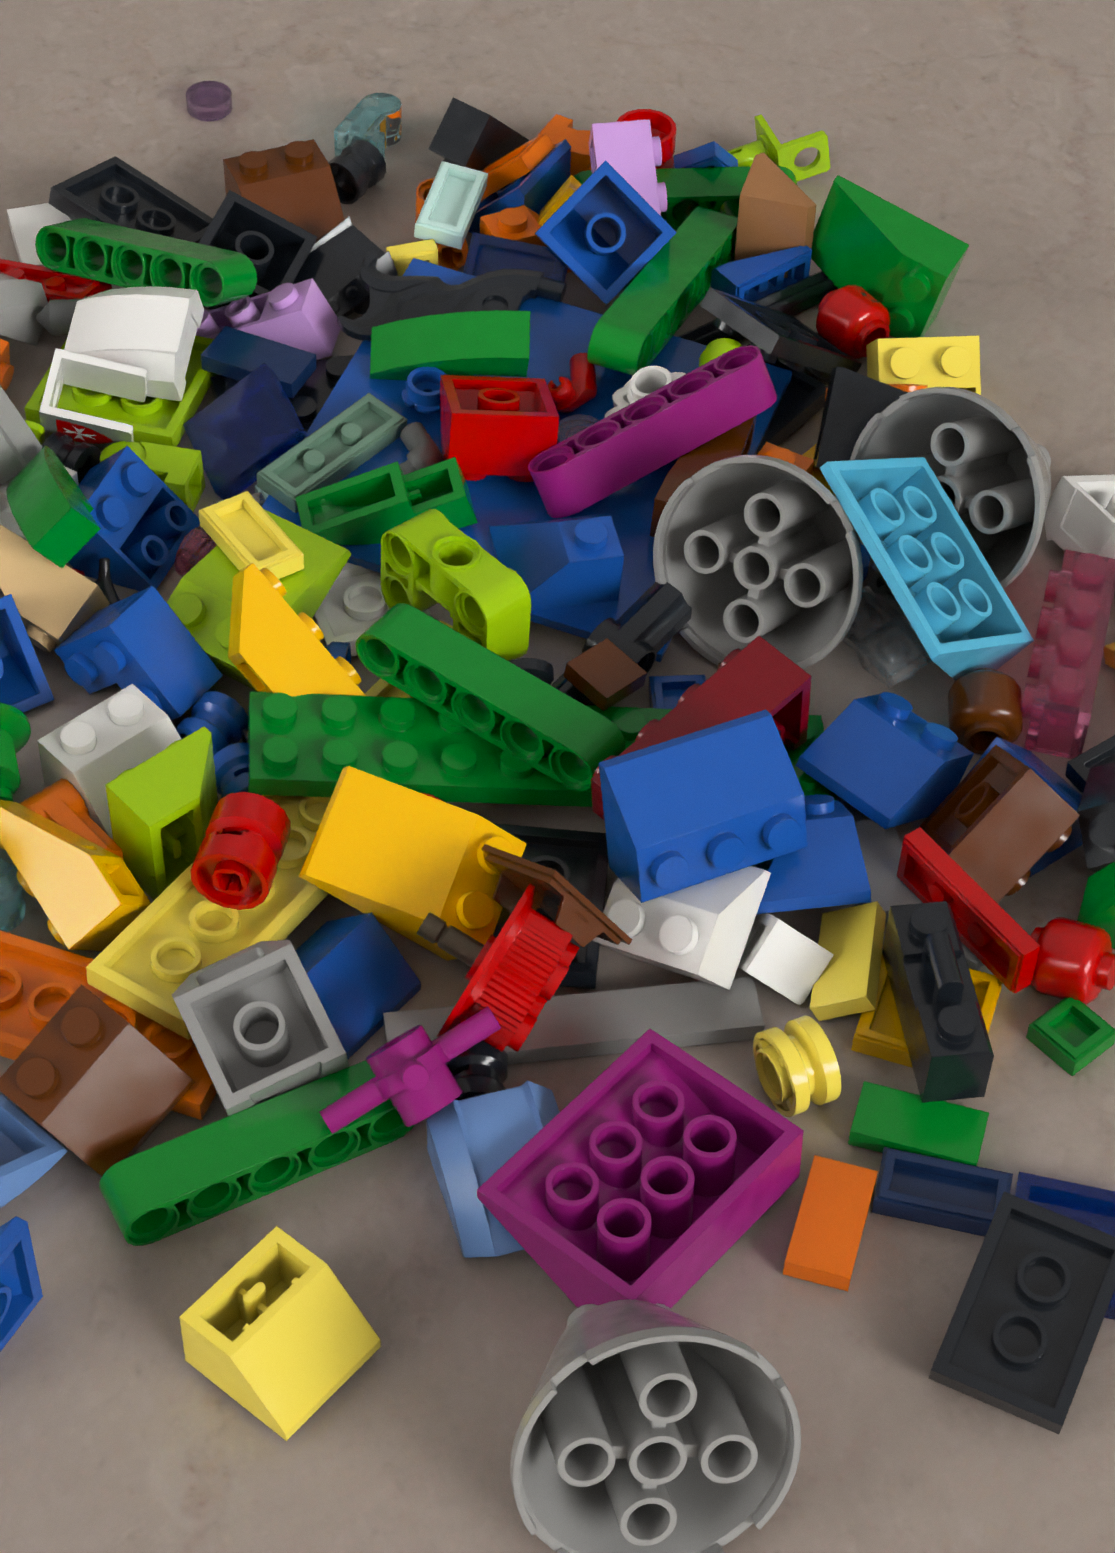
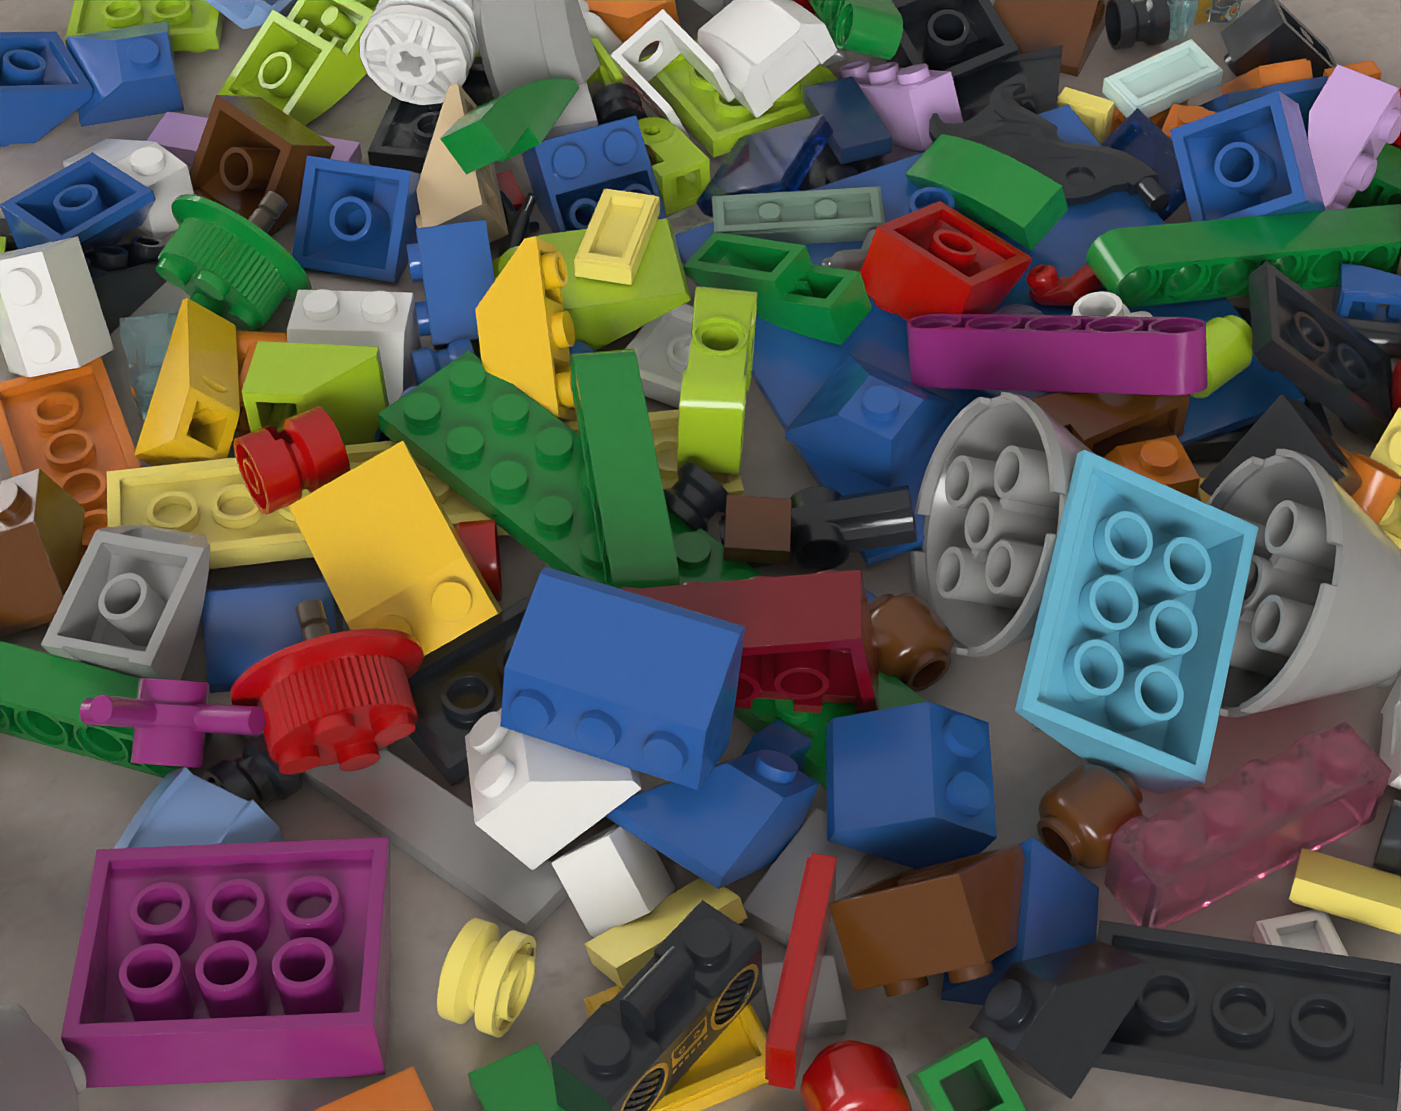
camera: 50 degrees right, 0 degrees up
(553, 895) = (435, 673): reddish brown piece -> none

